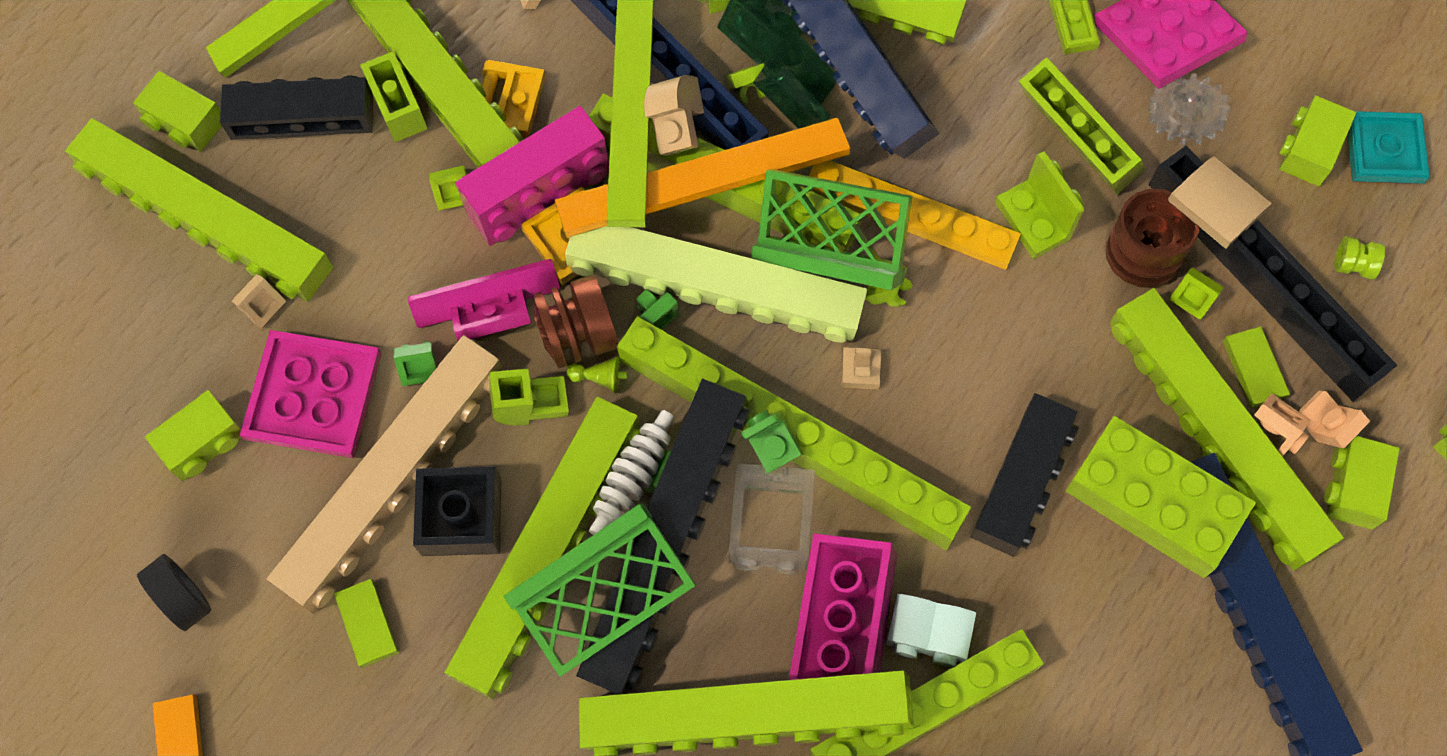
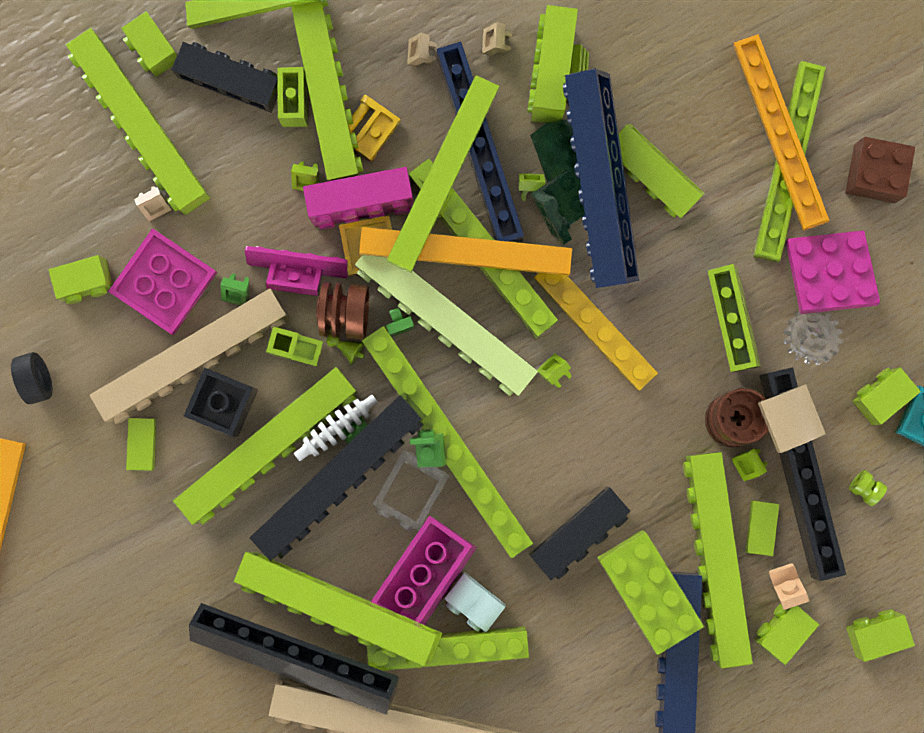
camera: 25 degrees right, 15 degrees up
(579, 560) = (272, 475): bright green fence -> none
(672, 110) = (464, 194): tan brick -> none
(828, 261) = (521, 341): bright green fence -> none
(861, 368) = (512, 417): tan tile -> none
(1042, 207) = (678, 363): lime bracket -> none
(1283, 419) = (757, 574): light nougat bracket -> none

